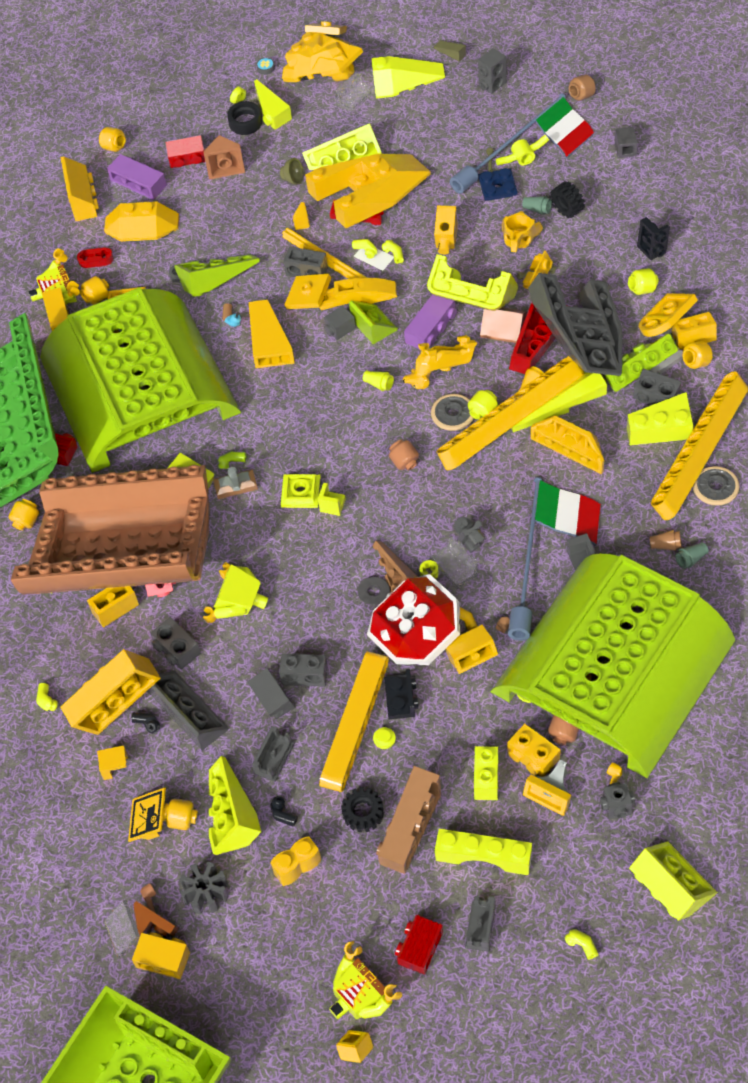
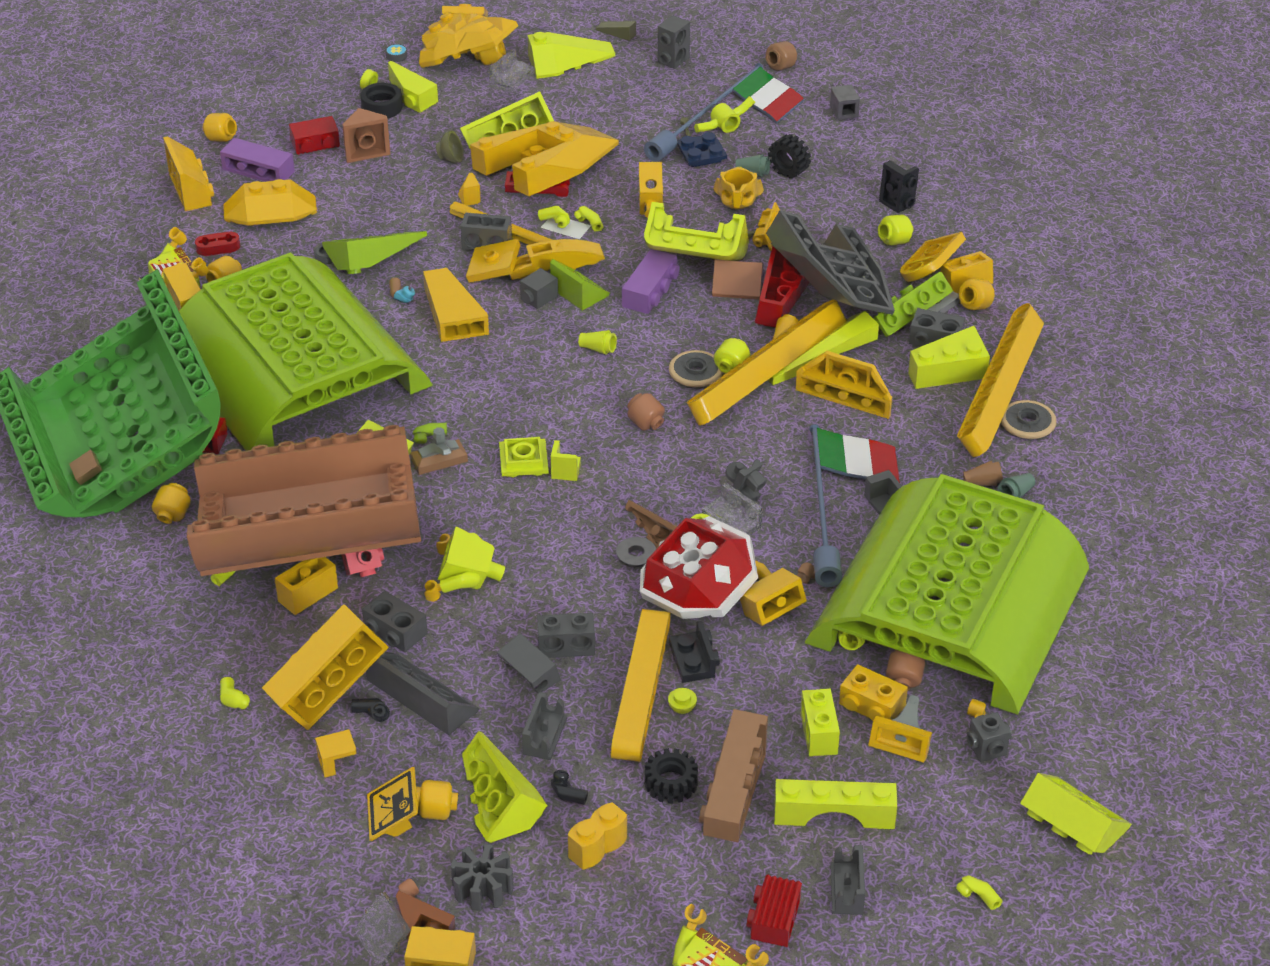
camera: 15 degrees left, 15 degrees down
(439, 358) = (672, 312): yellow animal -> none

